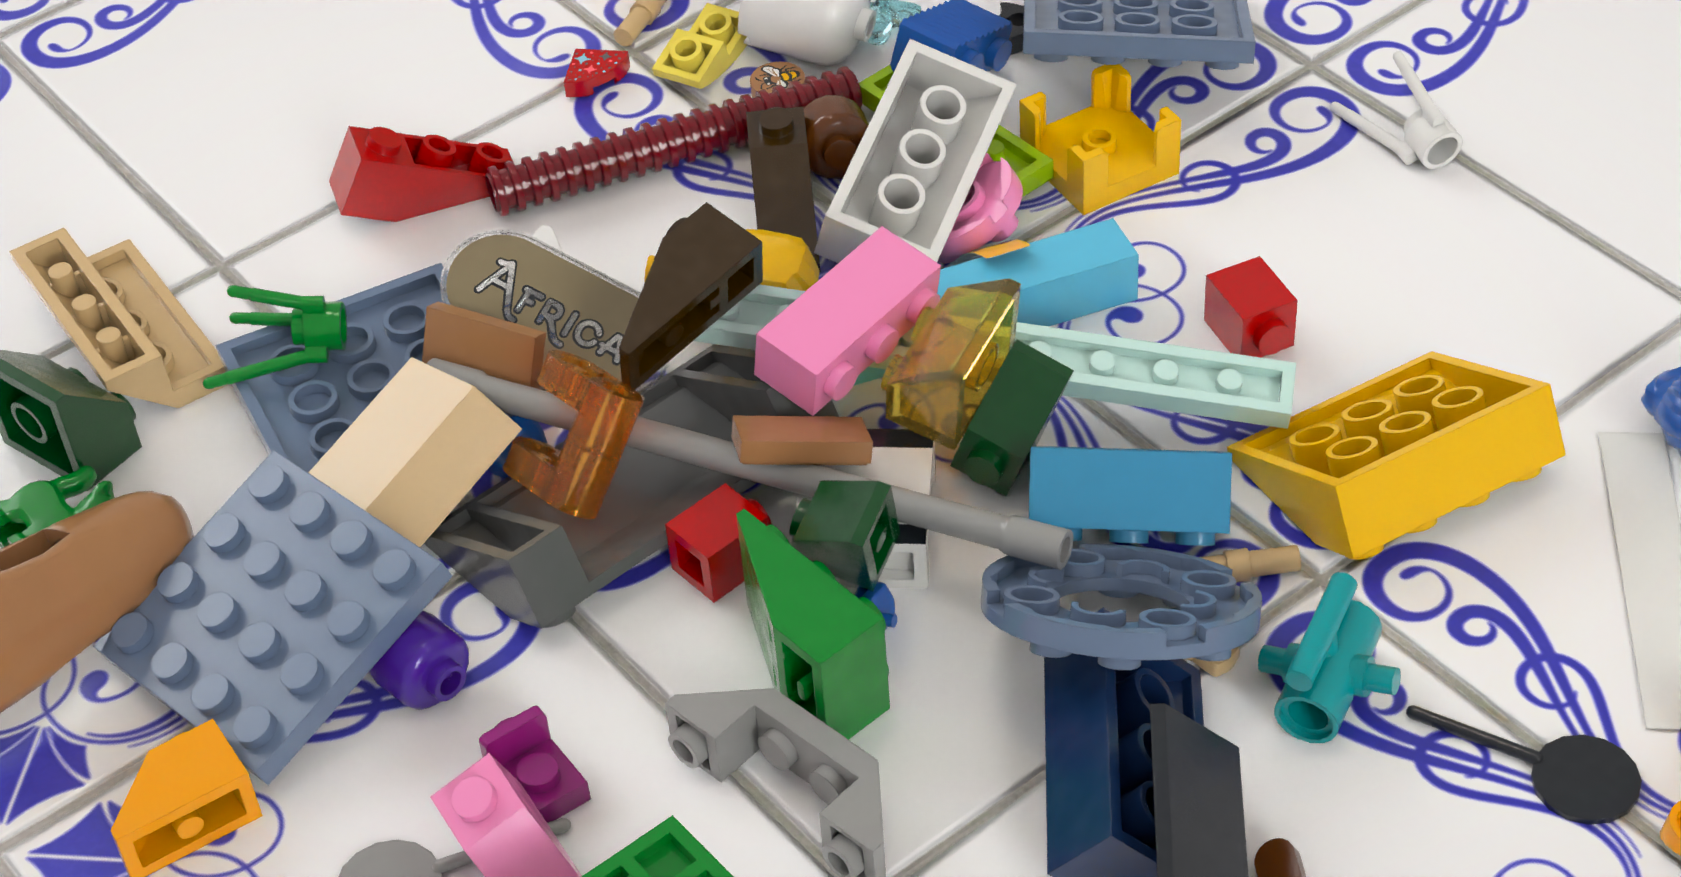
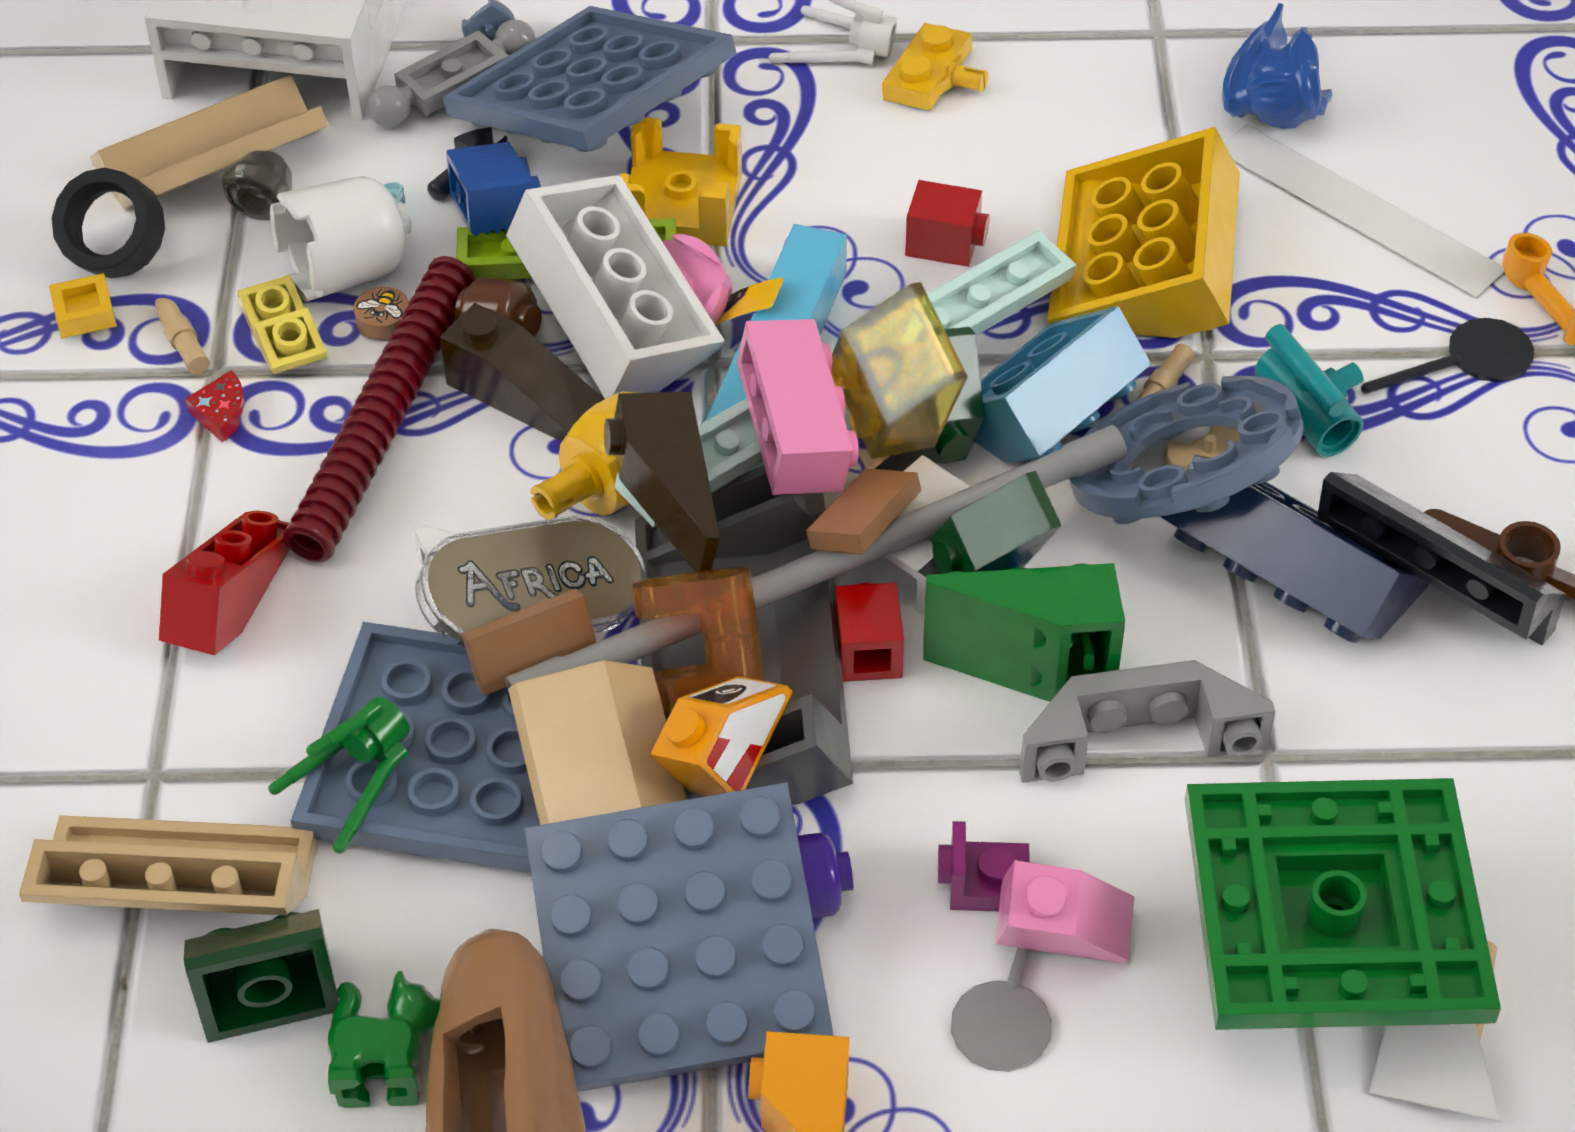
camera: 55 degrees left, 5 degrees up
(476, 500) = (720, 734): none -> slope
(1445, 196) = (932, 67): none -> yellow plate

